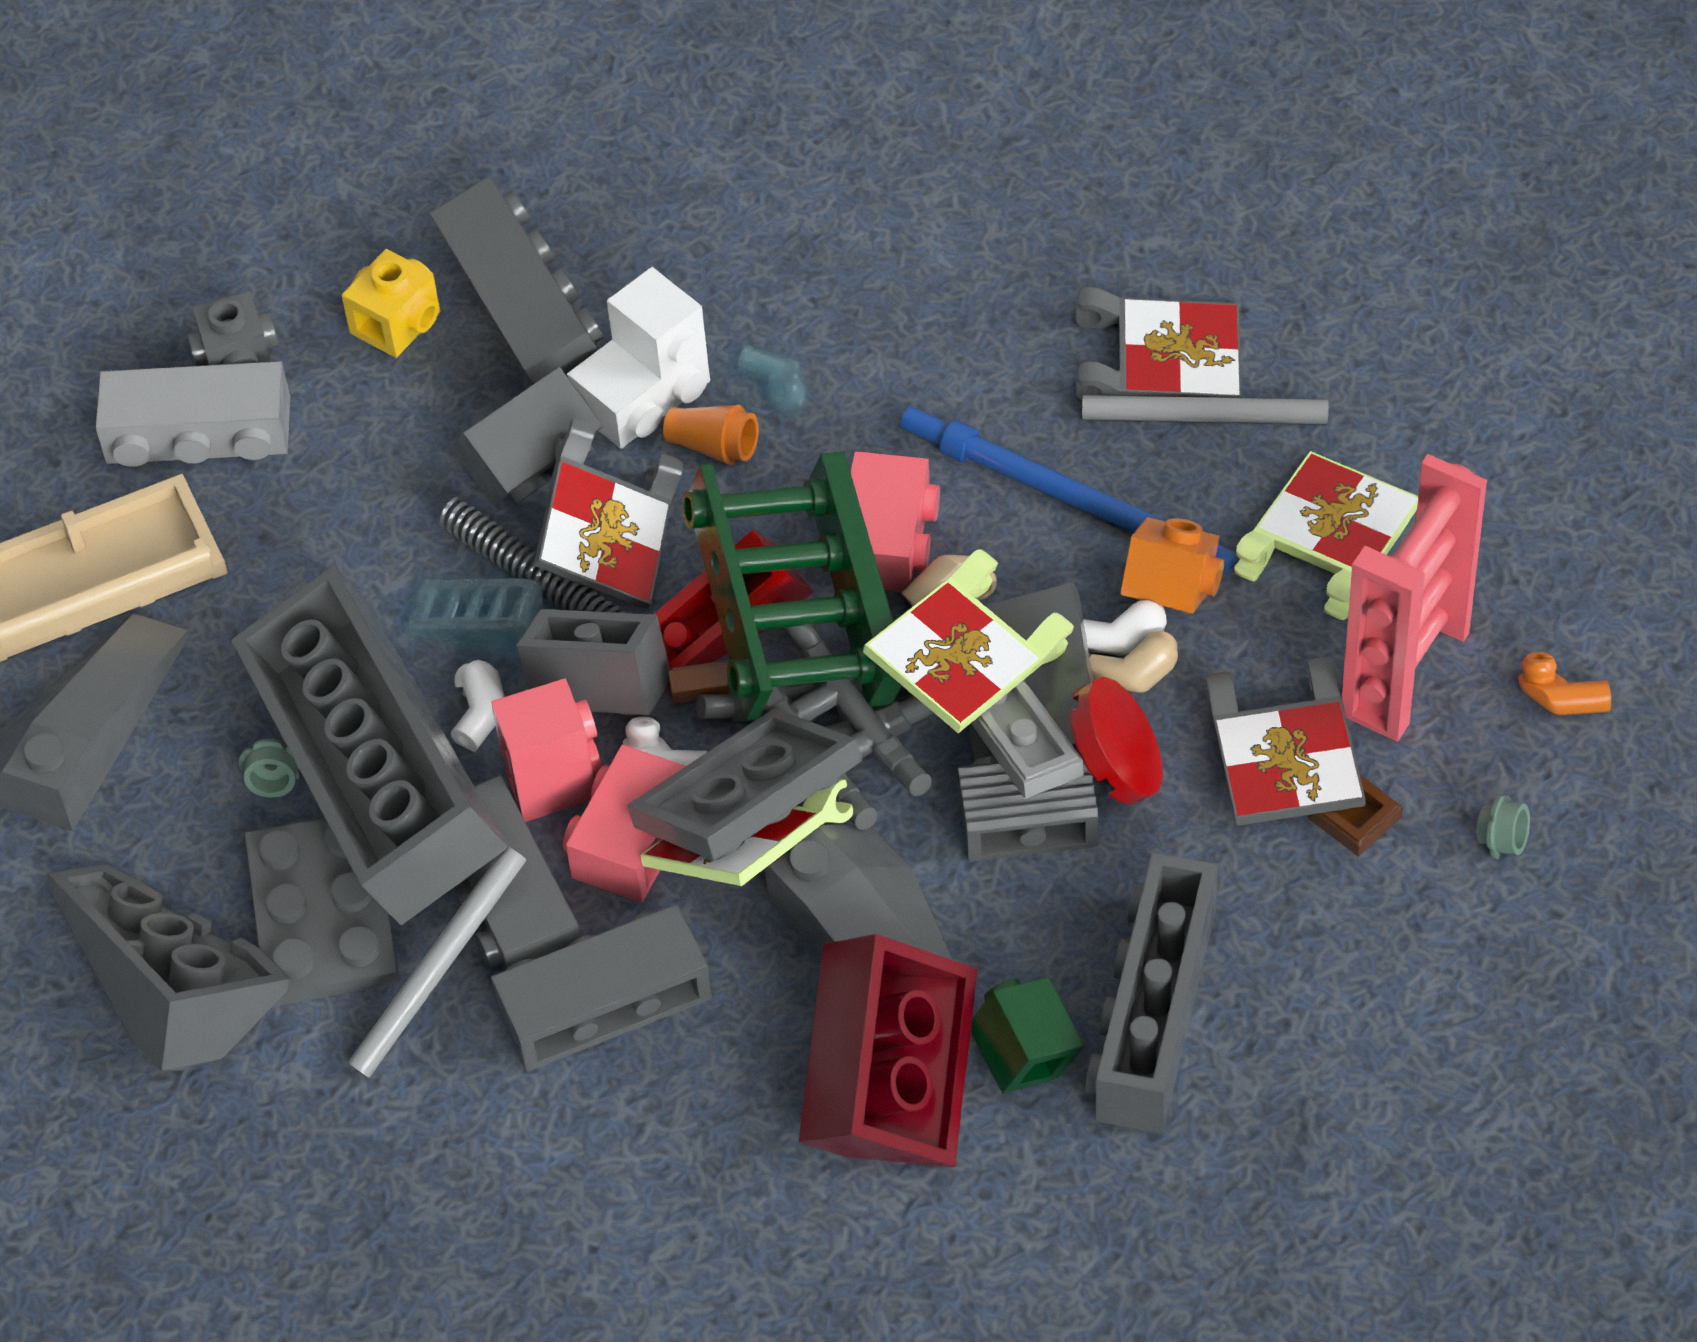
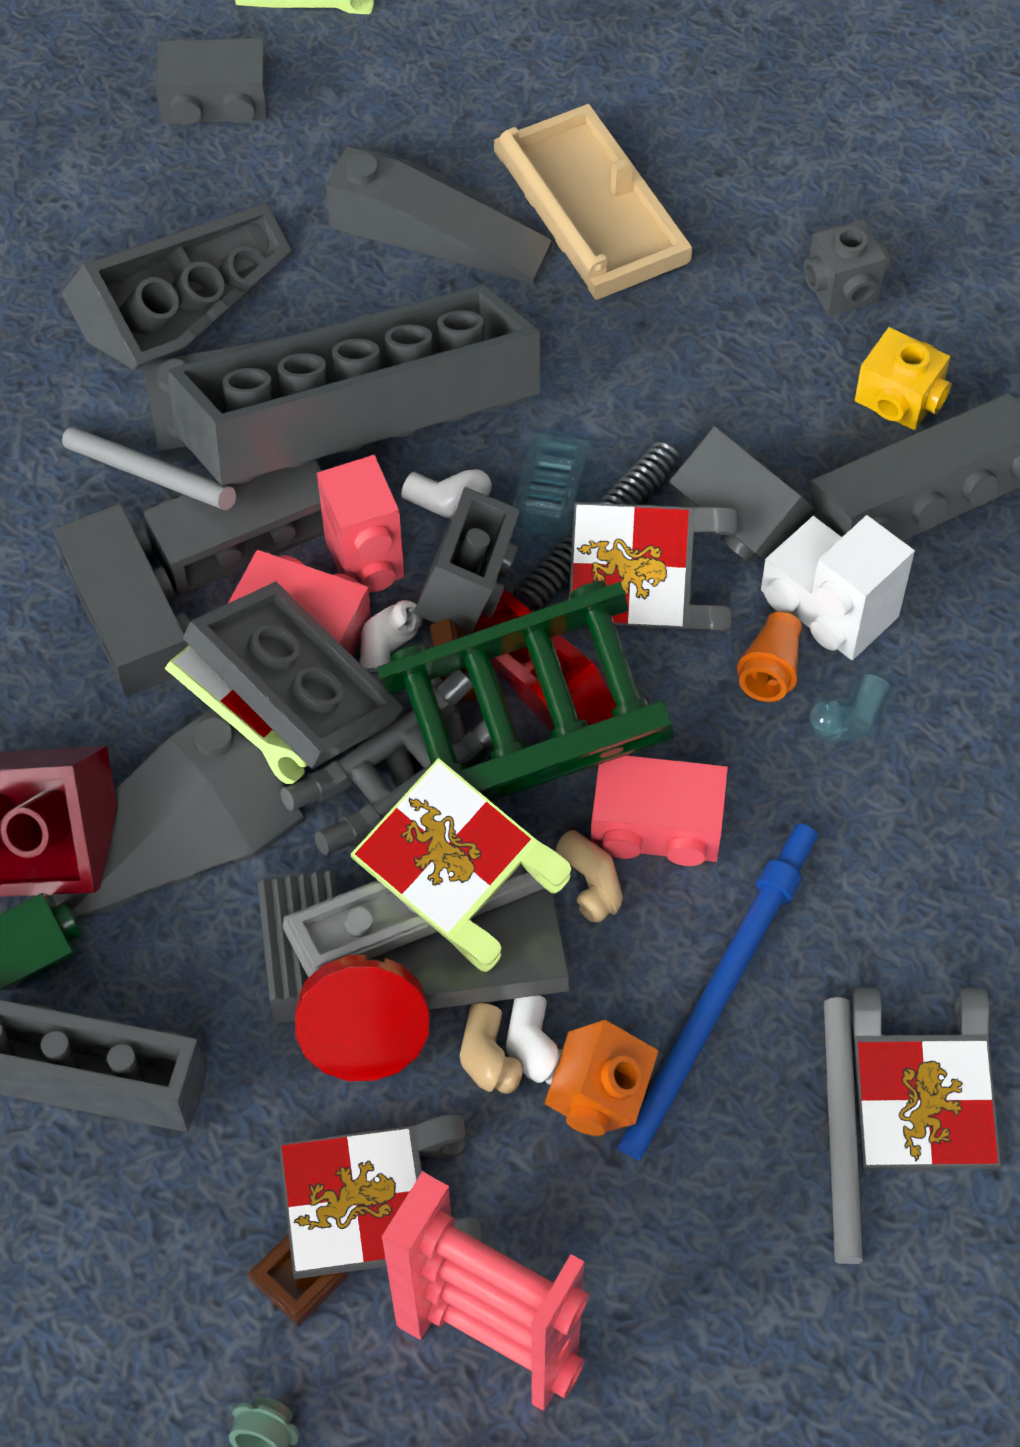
camera: 85 degrees right, 5 degrees up
(193, 413) = (762, 251): light grey brick -> none
(1327, 520) = (689, 1263): flag -> none

